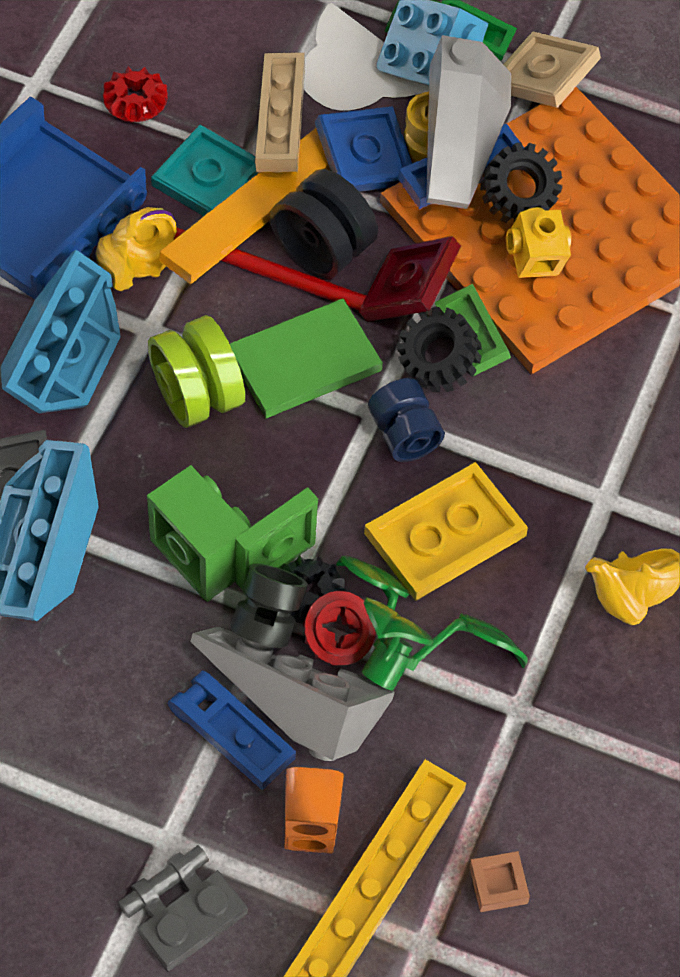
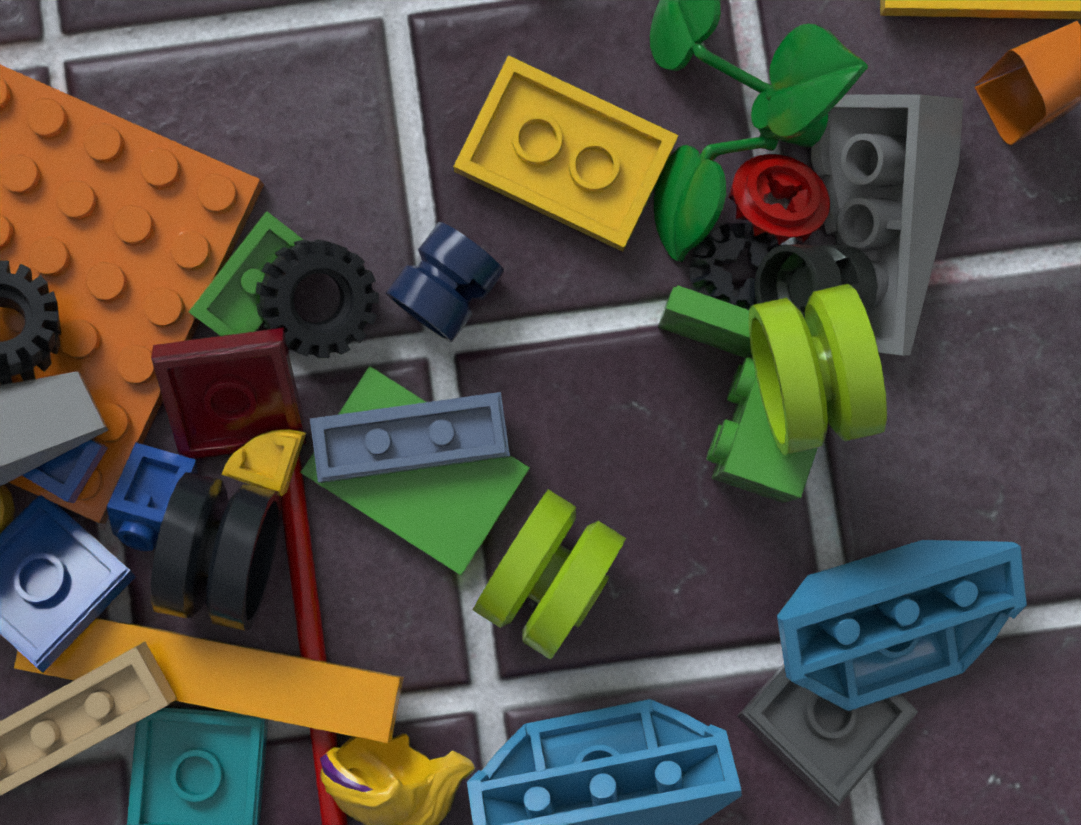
camera: 115 degrees left, 25 degrees up
(215, 510) = (818, 369): none -> lime wheel
(233, 730) = (977, 246): blue plate -> none
(324, 357) = (409, 437): none -> sand blue tile
(359, 281) = (267, 460): none -> yellow tile
(390, 220) = (144, 493): none -> blue bracket
(539, 242) = (84, 249): yellow brick -> none

